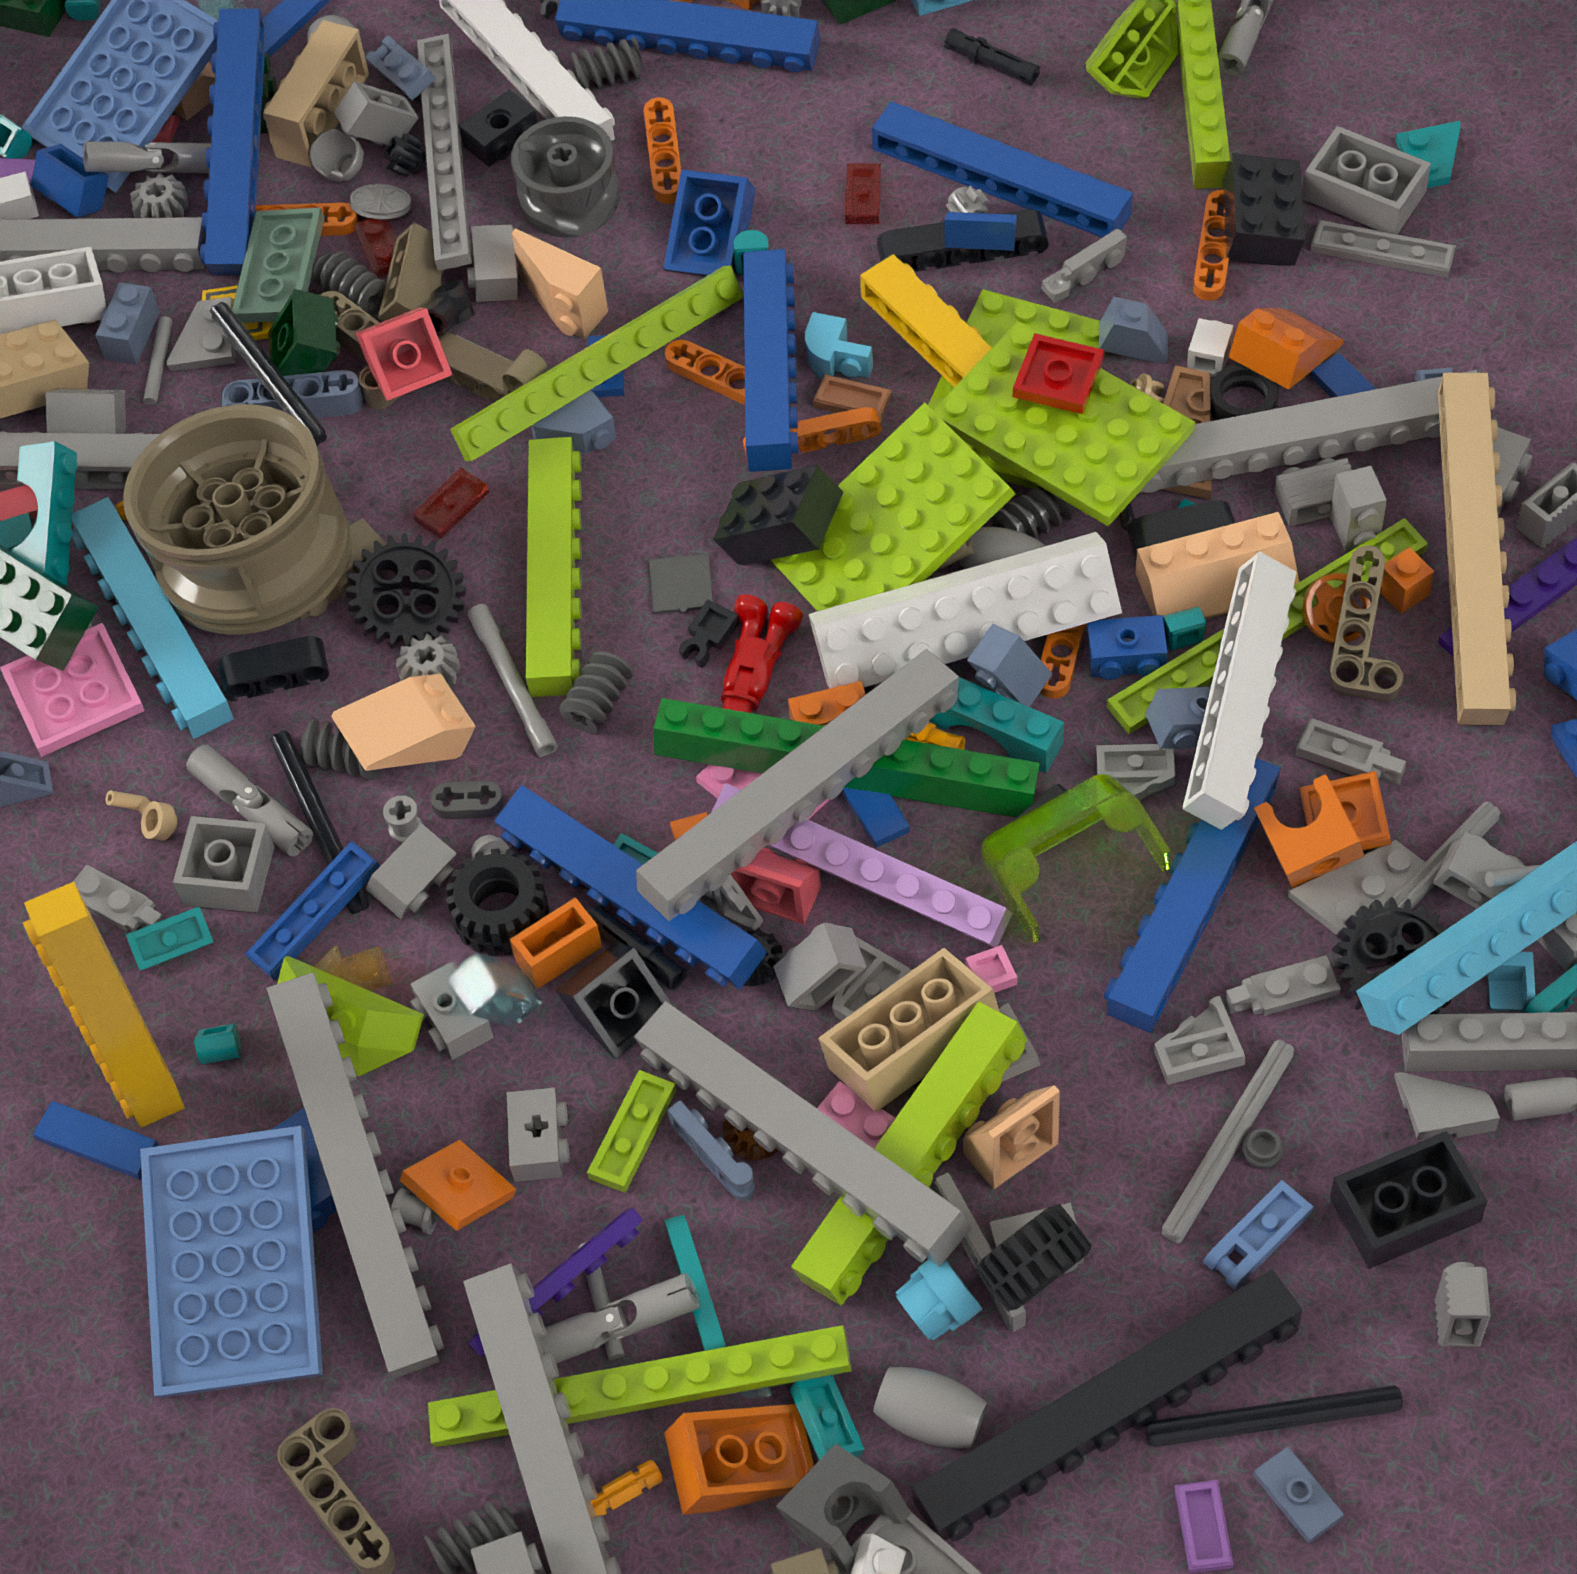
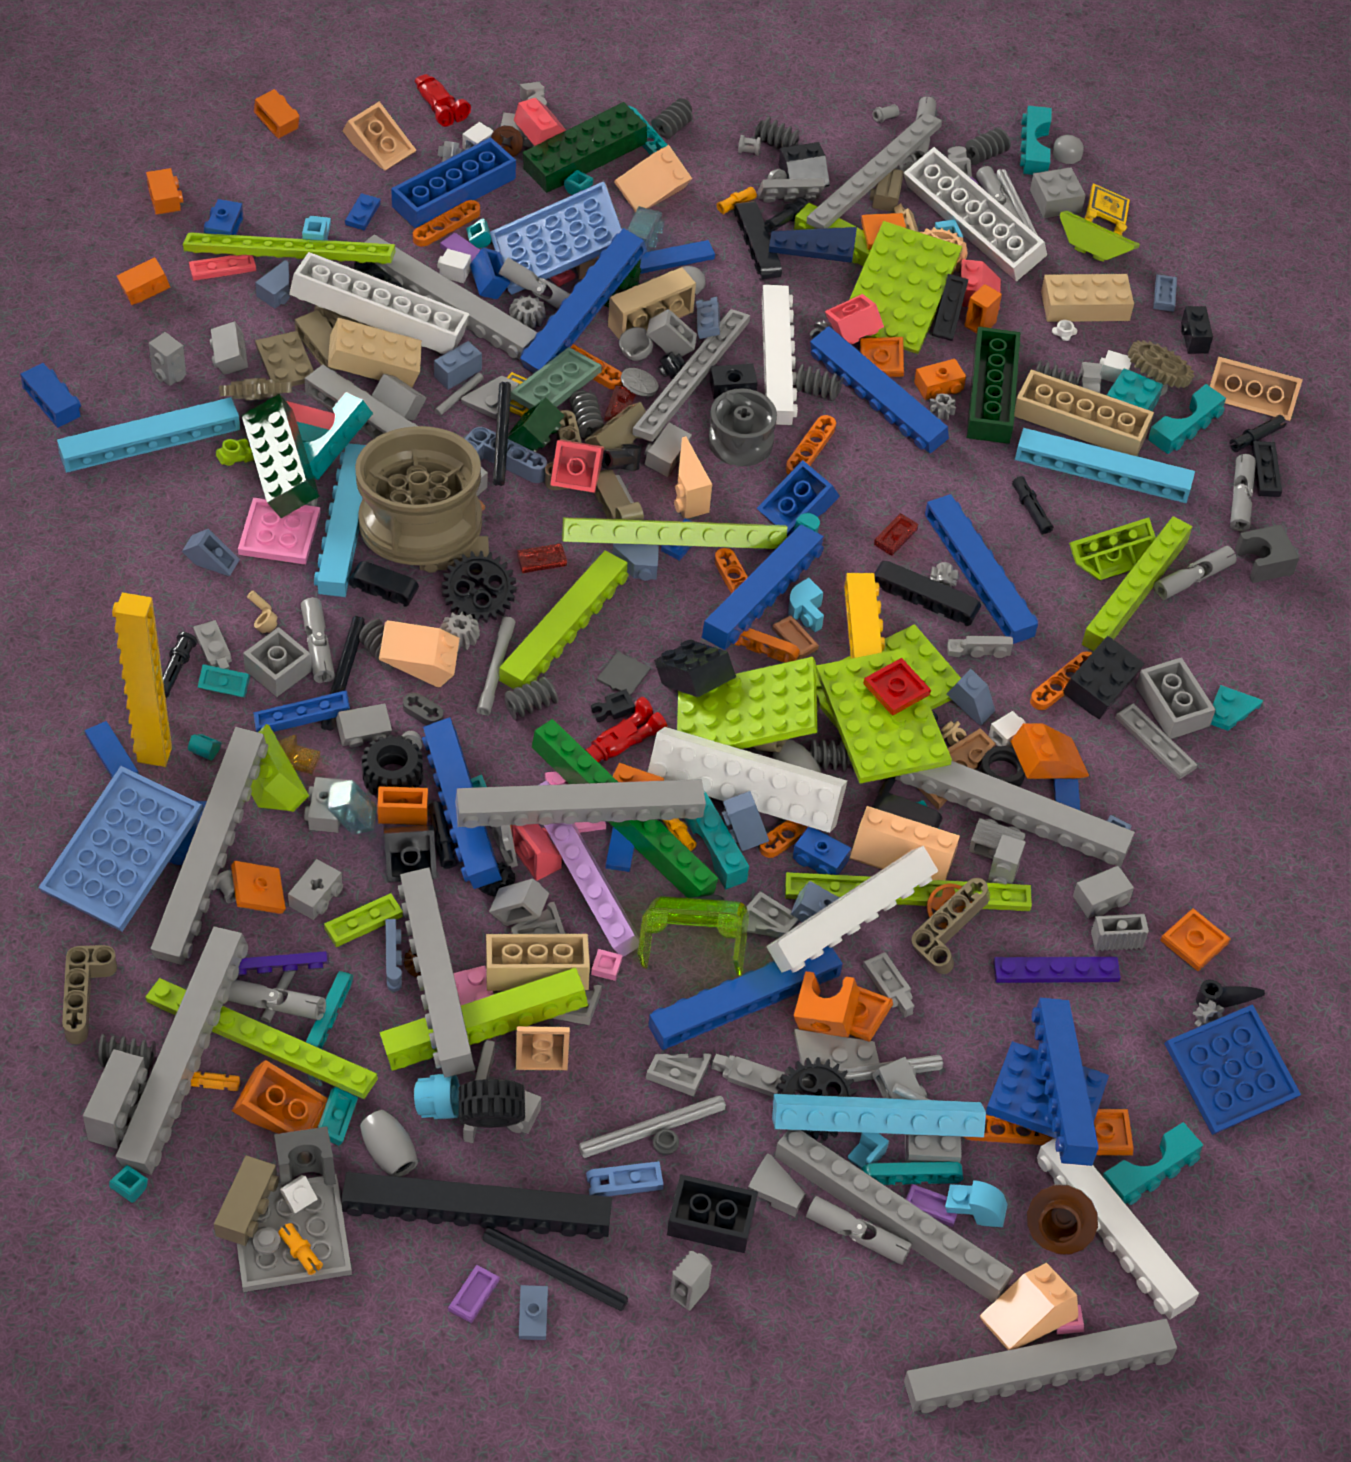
camera: 25 degrees right, 5 degrees down
(401, 816) = (383, 694): light grey bush -> none
(980, 231) = (934, 590): blue panel -> none
(1184, 628) = (860, 863): teal brick -> none
(1406, 580) = (1000, 916): orange brick -> none
(1474, 550) = (1046, 921): tan brick -> none

